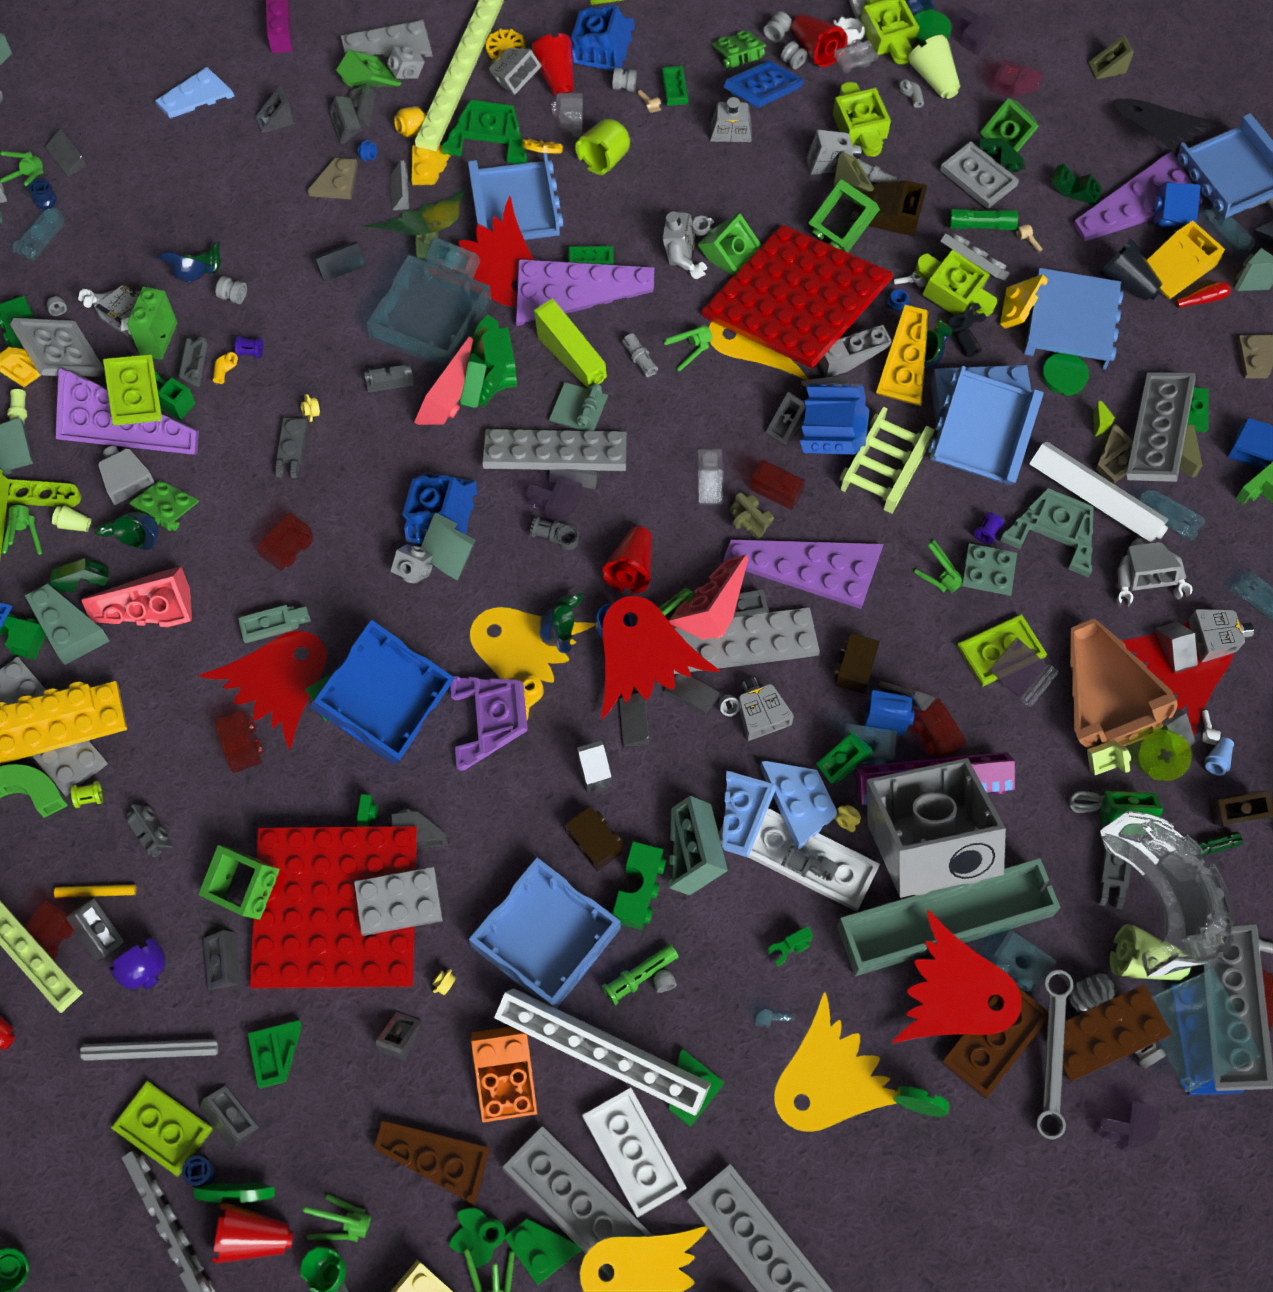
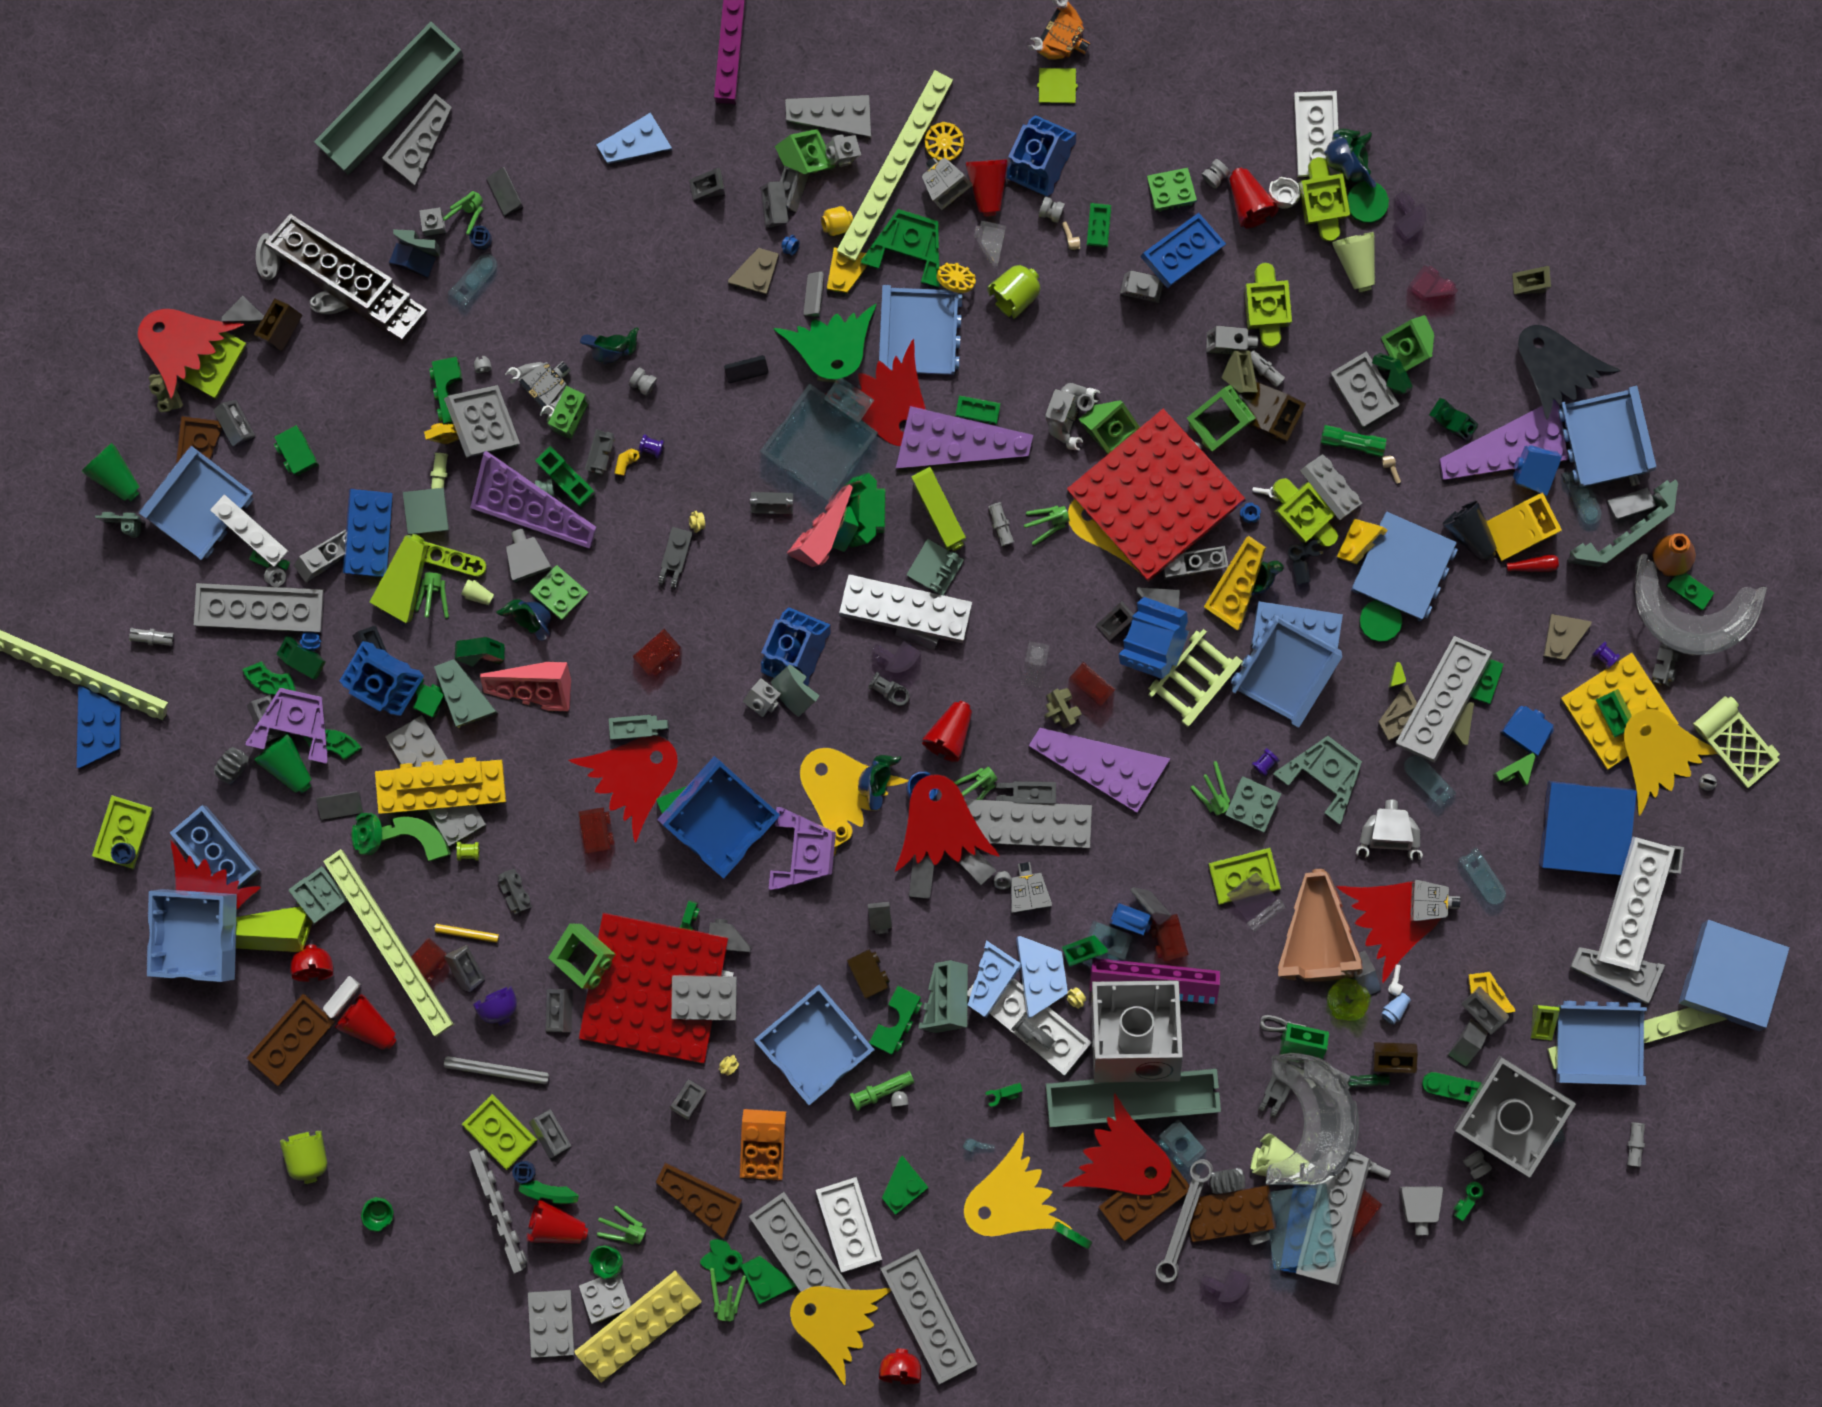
camera: 15 degrees right, 20 degrees up
(132, 390) = (545, 487): lime plate -> none
(274, 1052) = (590, 1093): green wing -> none
(603, 1051) = (839, 1148): white brick -> none
(714, 603) = (1007, 793): coral wedge -> none
(794, 55) = (1223, 212): light grey wheel -> none
(856, 55) = (1283, 227): clear hips -> none
(857, 662) = (1118, 864): dark brown brick -> none
(913, 91) = (1329, 277): light grey arm -> none
(1100, 492) = (1371, 749): white brick -> none
(1107, 757) = (1302, 990): yellowish green bracket -> none
(1178, 646) = (1393, 903): flat silver slope -> none

